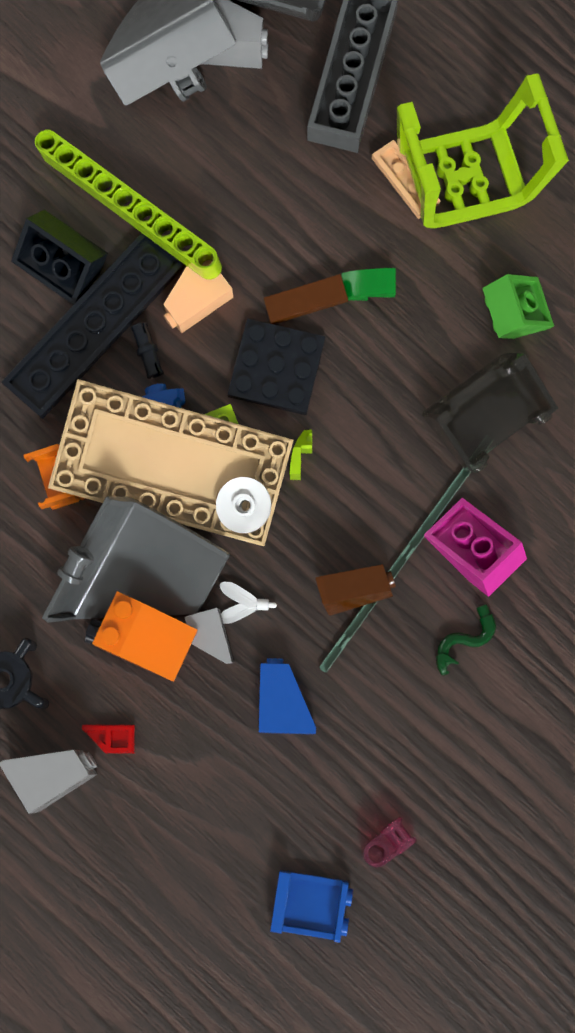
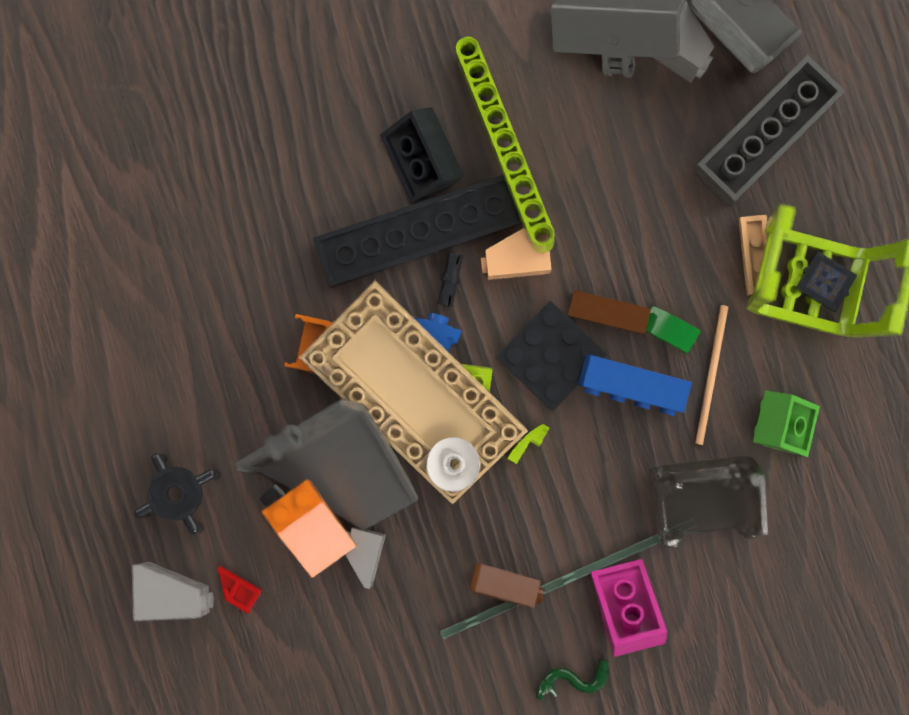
camera: 30 degrees right, 5 degrees up
(247, 601) = (411, 543): white piece -> none
(281, 701) = (392, 644): blue slope -> none
(364, 346) = (634, 383): none -> blue brick
(428, 304) = (711, 375): none -> light nougat axle
(479, 166) = (826, 282): none -> piece

